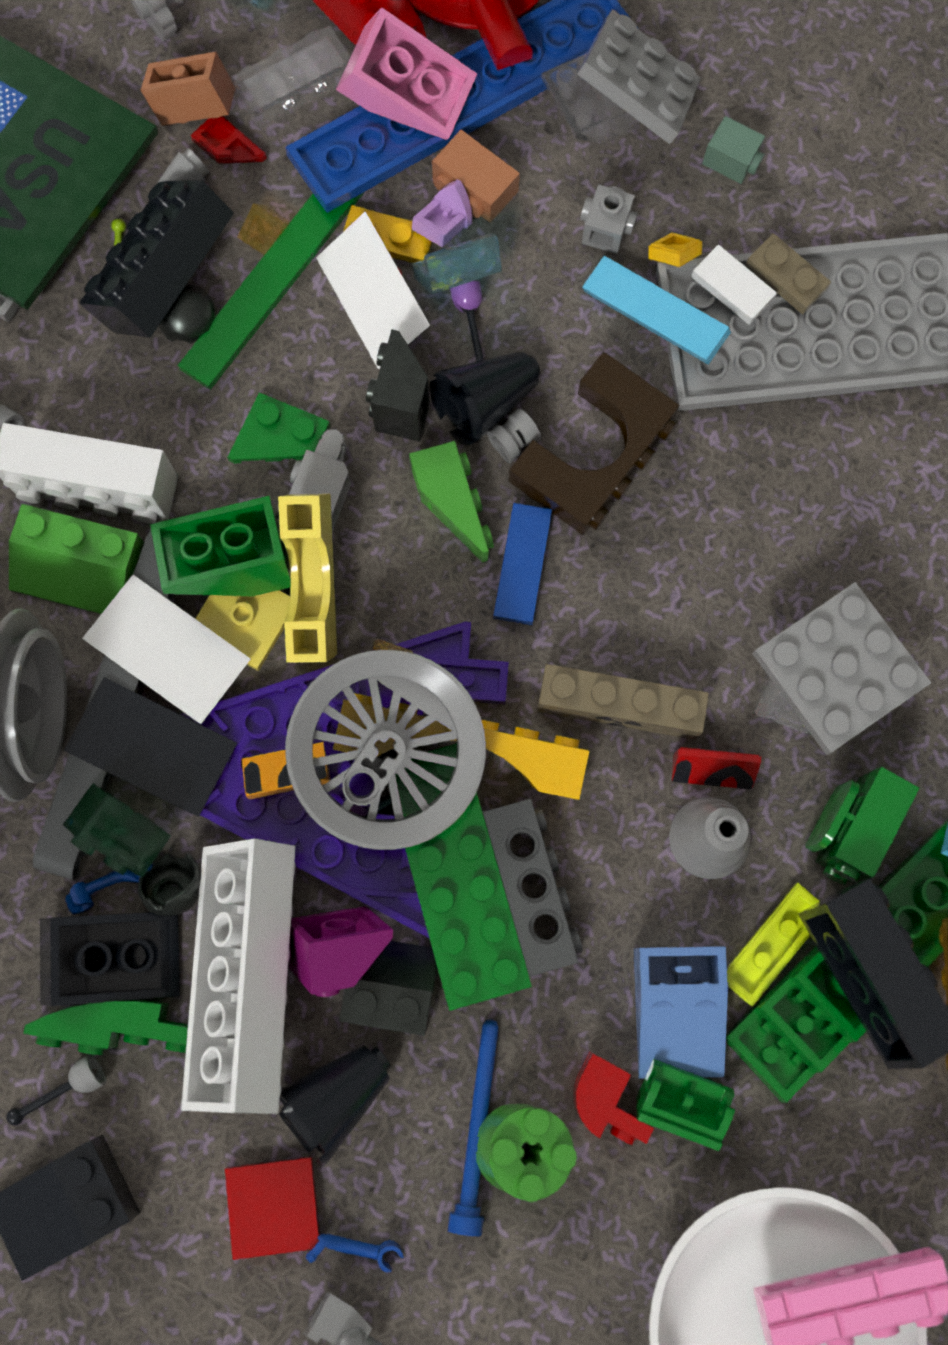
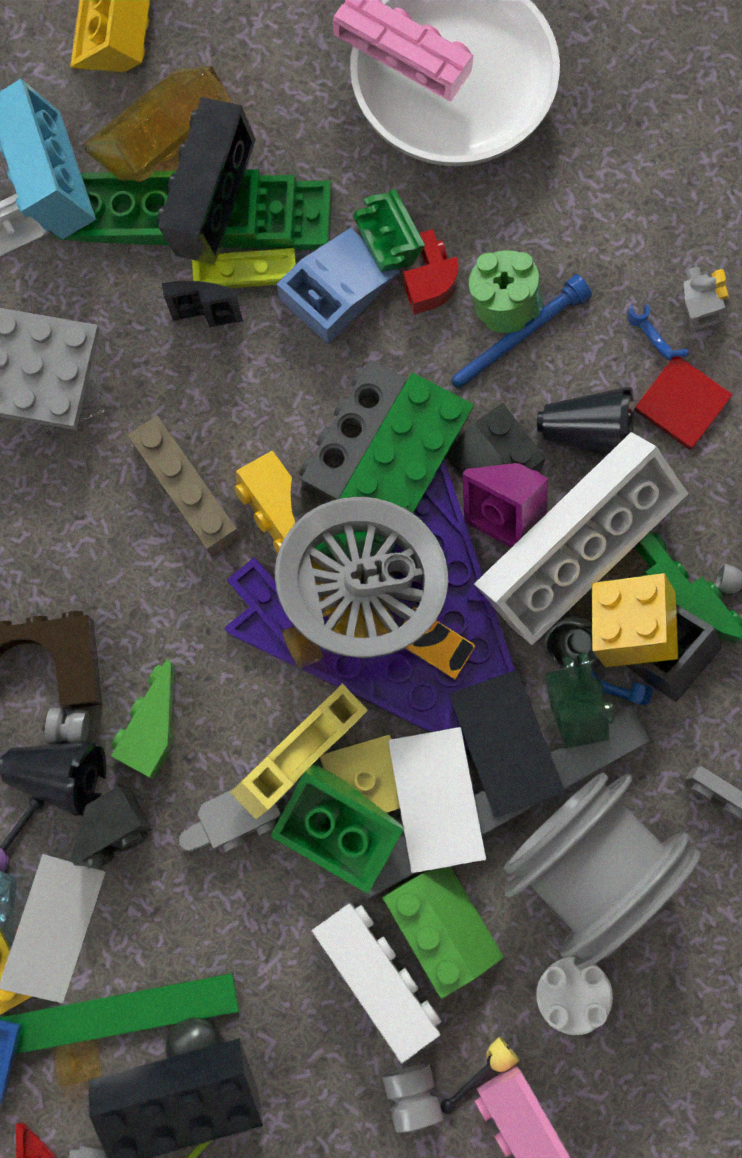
camera: 130 degrees left, 0 degrees up
(127, 946) = (634, 620): none -> yellow brick
(277, 432) = (218, 890): green wing -> none
(522, 564) = (151, 638): blue tile -> none
(710, 837) = (215, 358): light grey cone -> none
(715, 768) = (170, 396): red slope -> none
(764, 874) = (201, 298): none -> black slope
(860, 825) = (123, 276): green brick -> none

